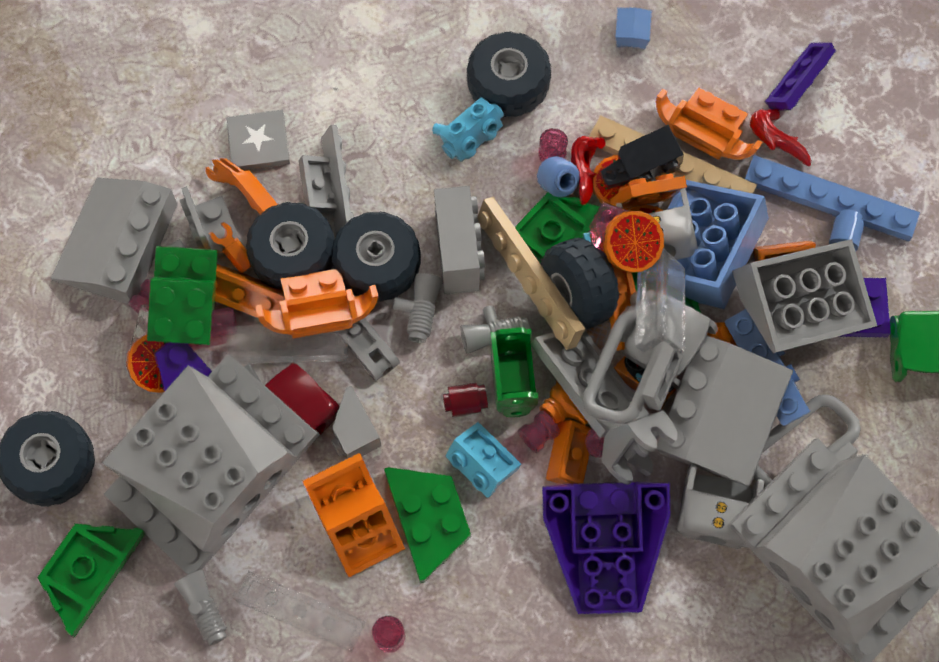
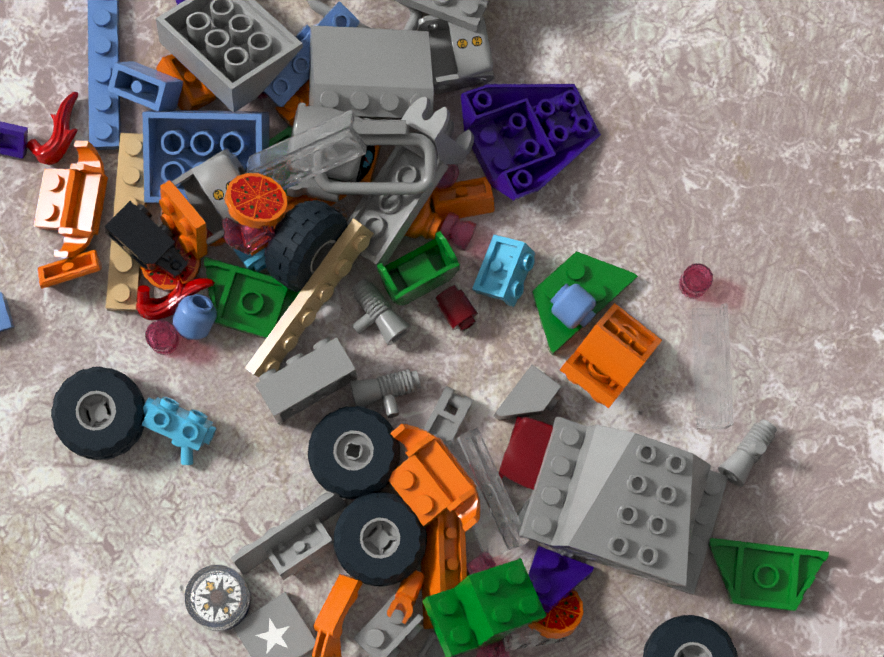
camera: 120 degrees left, 10 degrees up
(309, 104) = (217, 598): none -> clear piece
(415, 498) = (573, 306): none -> medium blue head
(645, 97) = (69, 269): none -> orange slope
(791, 214) = (145, 86): none -> medium blue brick
(847, 226) = (137, 34): medium blue brick -> none

